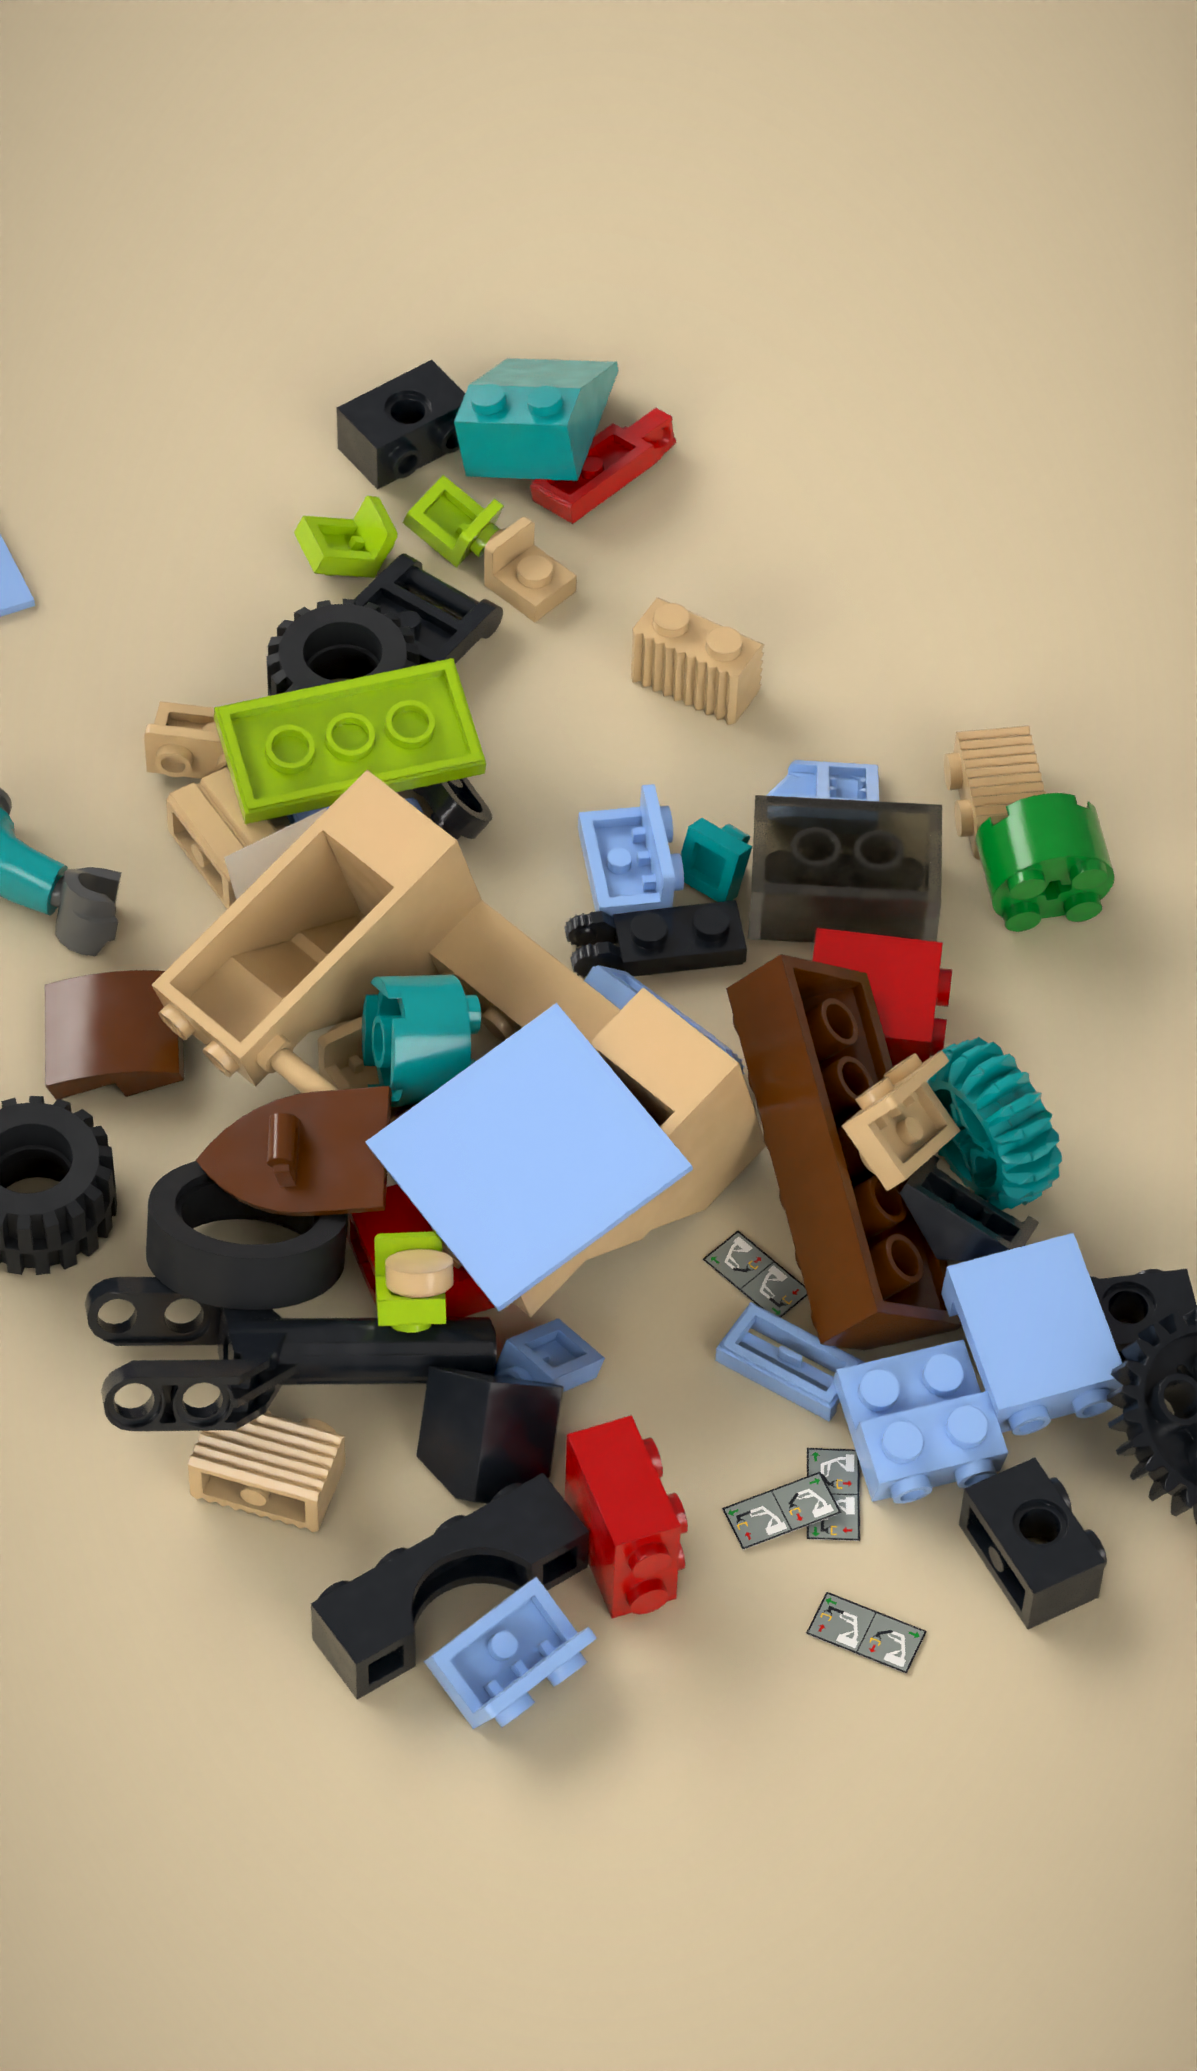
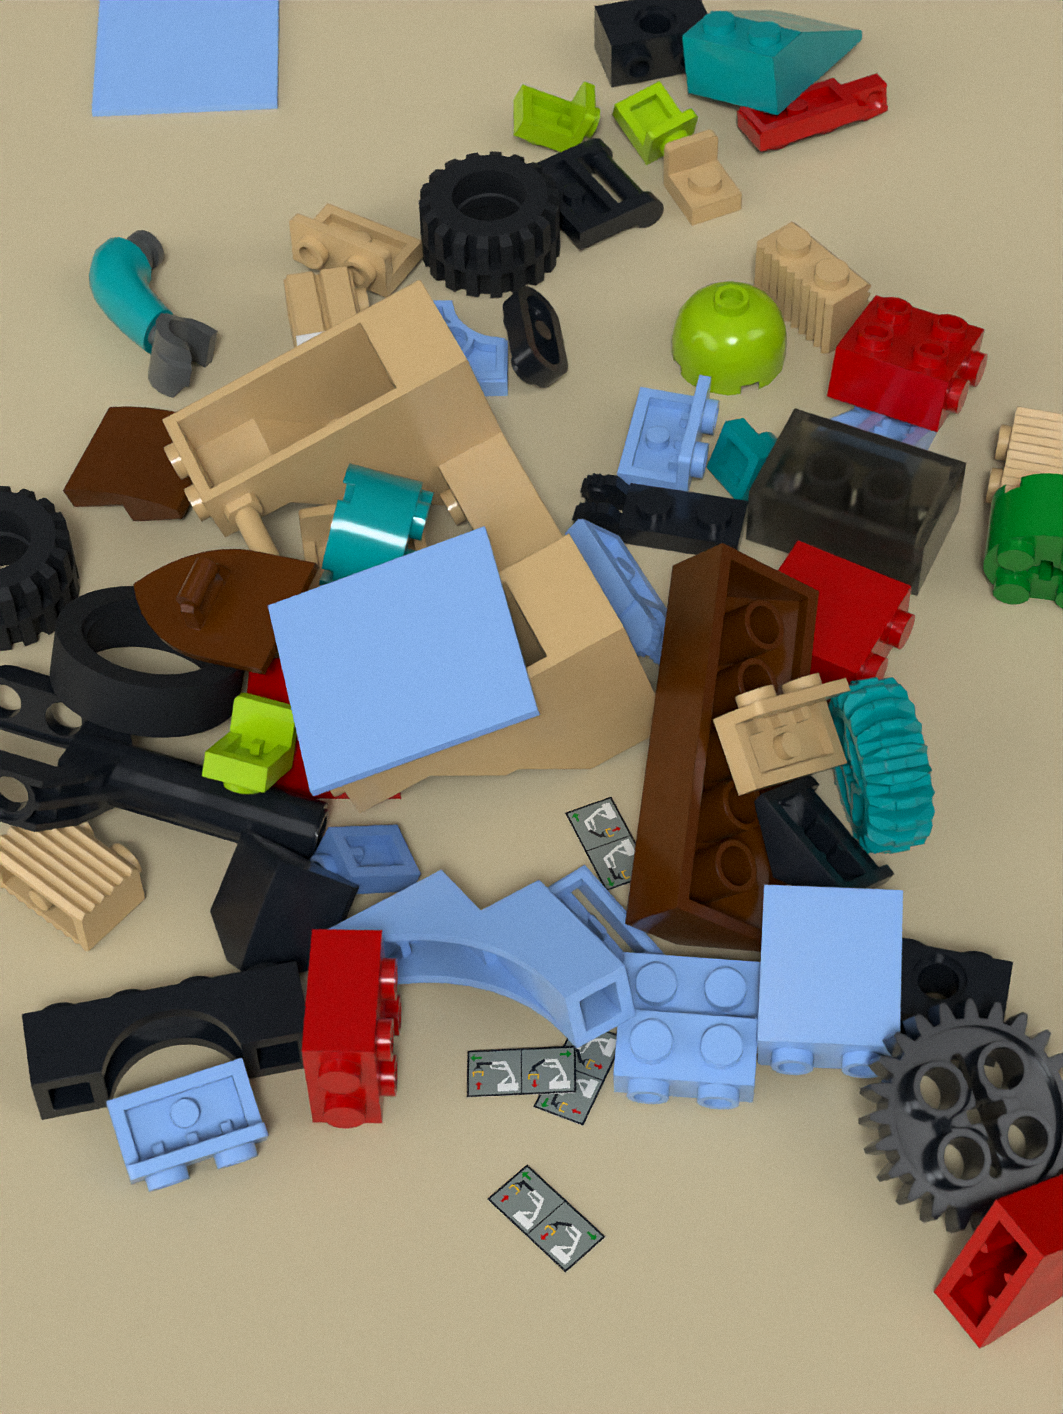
camera: 25 degrees right, 0 degrees up
(315, 742) = (470, 265): lime tile -> none
(419, 1273) = (258, 738): tan tile -> none
(637, 735) = (731, 336): none -> lime cylinder
(739, 1396) = (516, 948): none -> light blue arch
(831, 715) = (907, 363): none -> red brick
(1034, 1577) = (738, 1222): black brick -> none

